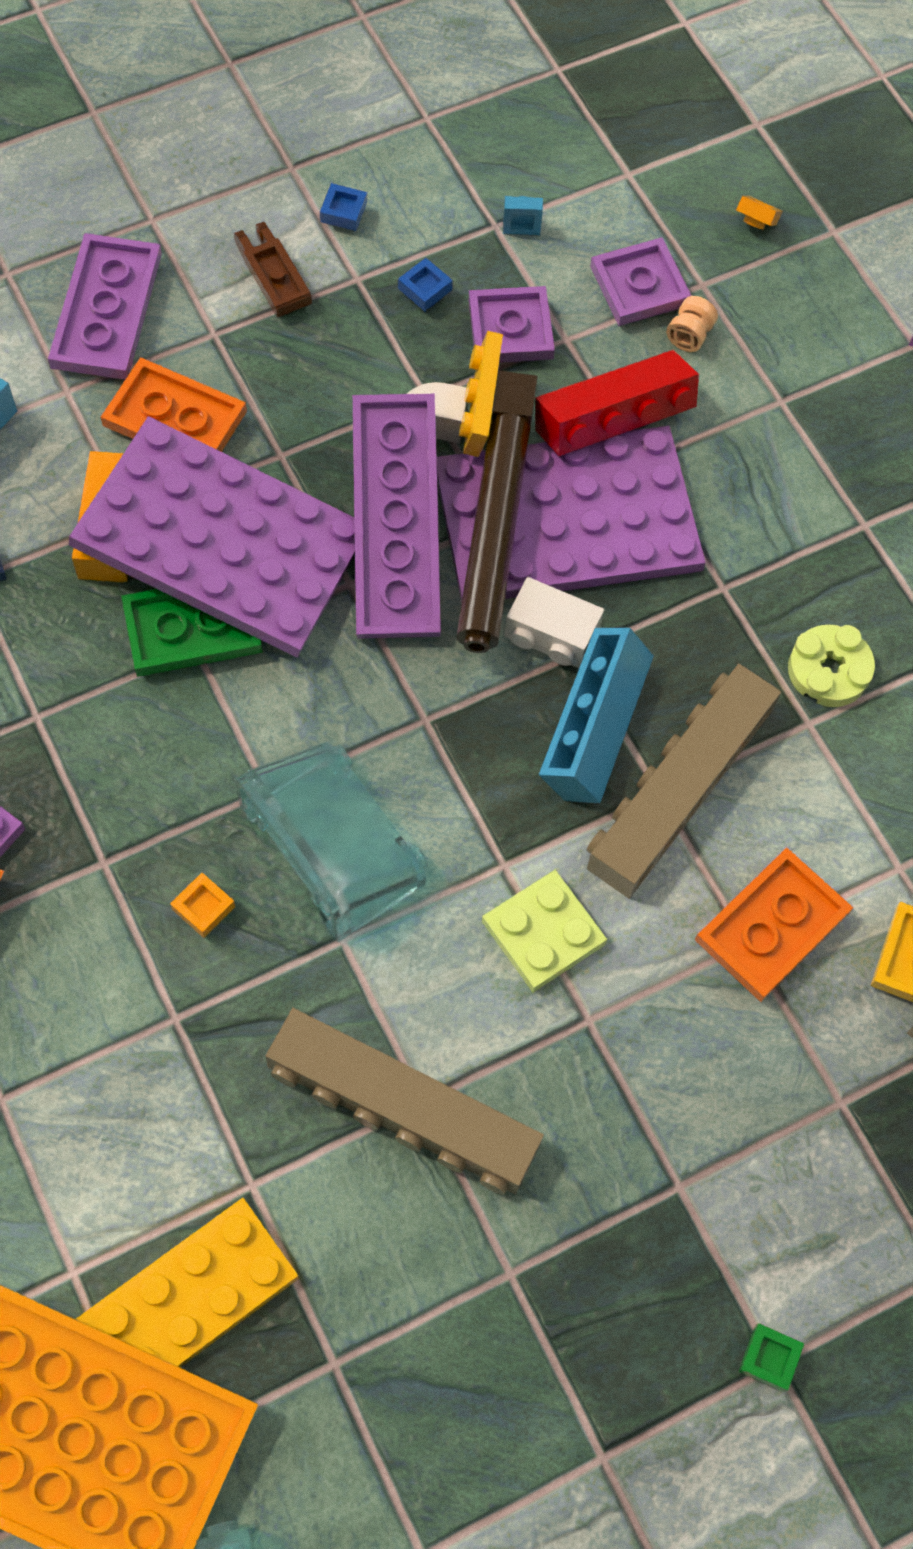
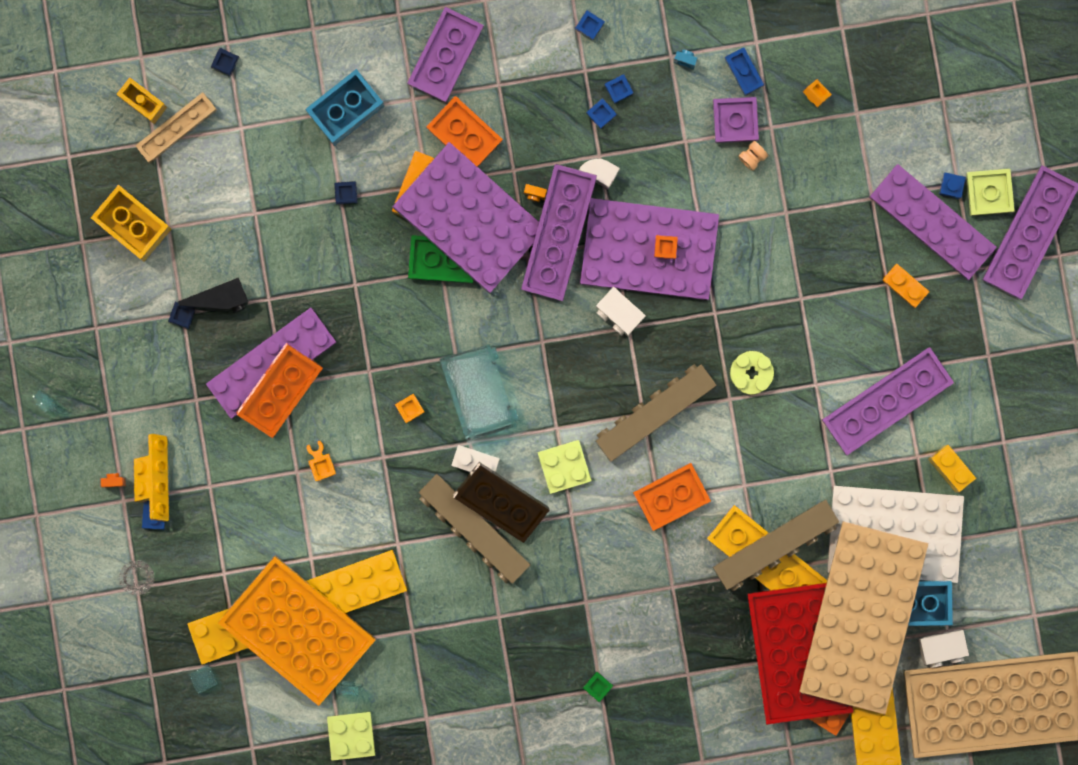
camera: 20 degrees right, 20 degrees up
(48, 1066) = (321, 464): none -> light orange plate
(273, 271) = (540, 57): reddish brown hinge -> none
(331, 470) = (535, 193): none -> light orange plate
(365, 967) = (467, 459): none -> white brick
(407, 326) = (601, 113): none -> blue plate
(442, 1024) = (501, 502): none -> dark brown plate
(481, 393) = (623, 175): yellow plate -> none
(496, 512) = (610, 245): dark brown brick -> none
(517, 314) = (656, 128): medium lavender plate -> none
(596, 715) = (623, 369): dark azure brick -> none
(598, 489) = (665, 247): none -> orange plate
(616, 402) = (694, 197): red brick -> none
(626, 210) = (744, 71): none -> blue plate

